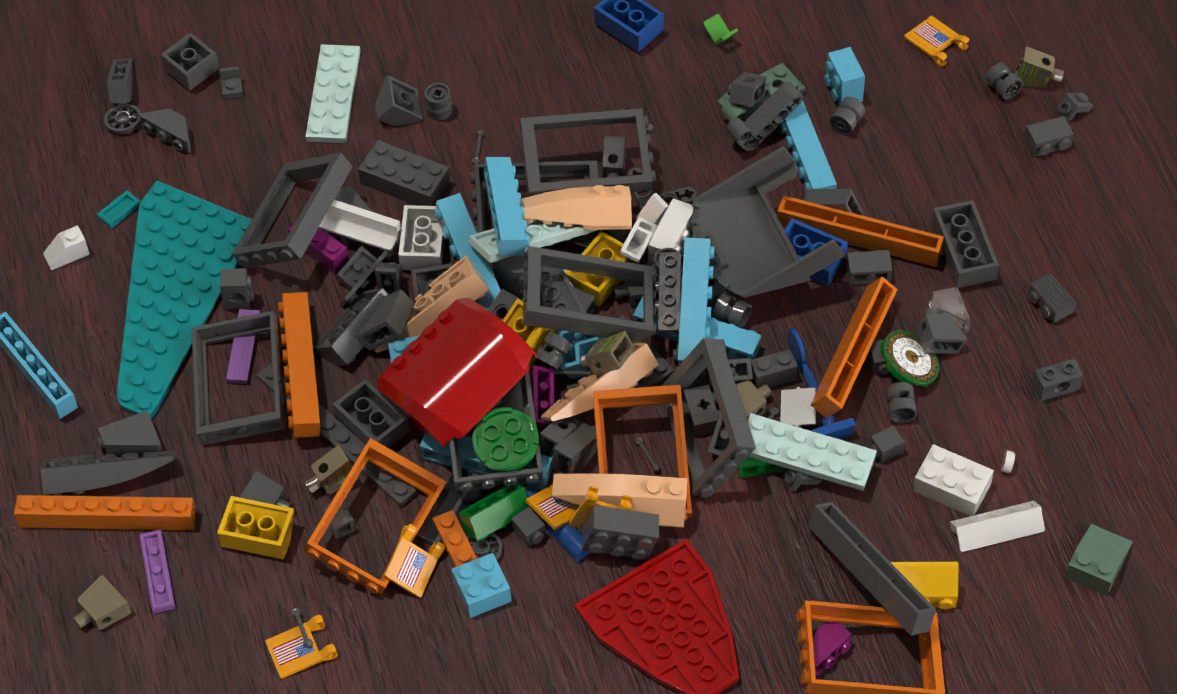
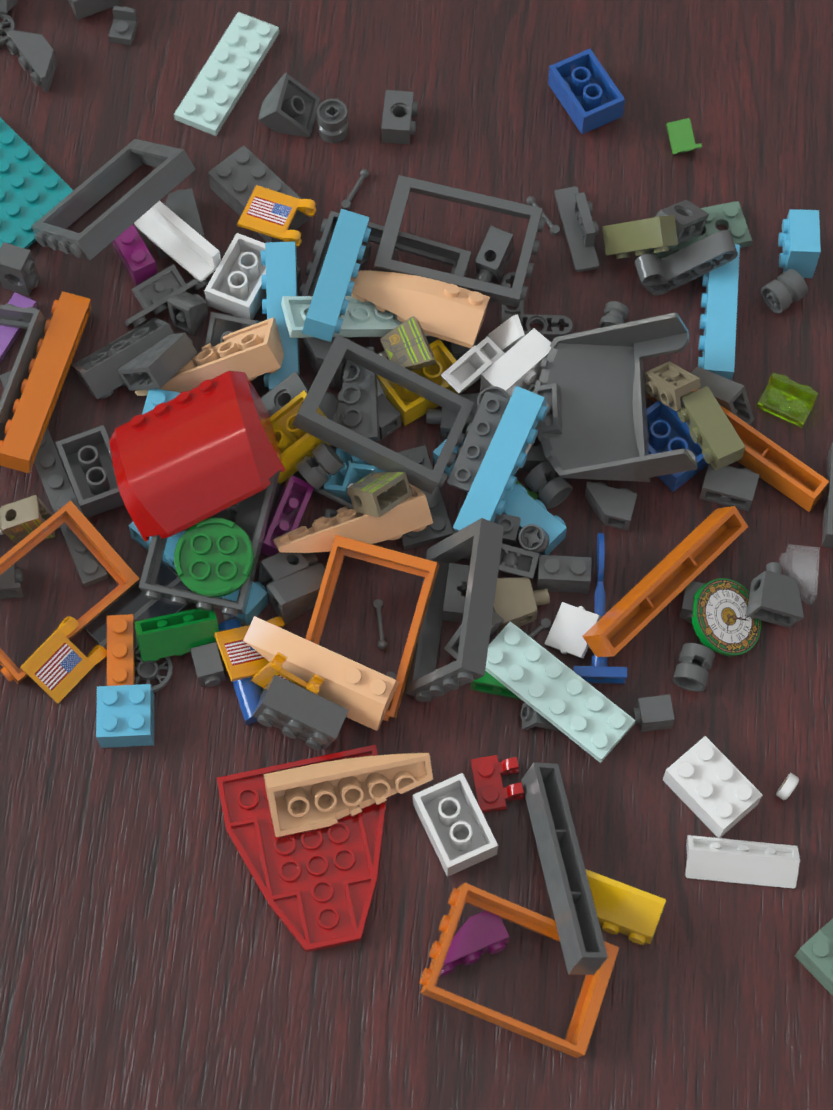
camera: 20 degrees right, 10 degrees up
(427, 181) = (273, 212): none -> light orange flag
(488, 83) = (398, 105): none -> dark grey brick
(584, 239) = (408, 346): none -> dark tan torso
(668, 119) = (578, 227): none -> dark grey bracket
(669, 580) = (330, 790): none -> light nougat wedge
(722, 108) = (640, 236): none -> olive brick
(725, 171) = (614, 313): none -> dark grey wheel
(741, 345) = (529, 536): none -> dark grey wheel
(774, 572) = (455, 824): none -> white brick
(785, 539) = (488, 782): none -> red plate
(786, 310) = (611, 505): none -> dark grey slope
(795, 205) = (669, 383): none -> dark tan bracket
(840, 225) = (711, 428): none -> olive brick
(884, 192) = (787, 399): none -> clear neon green bracket

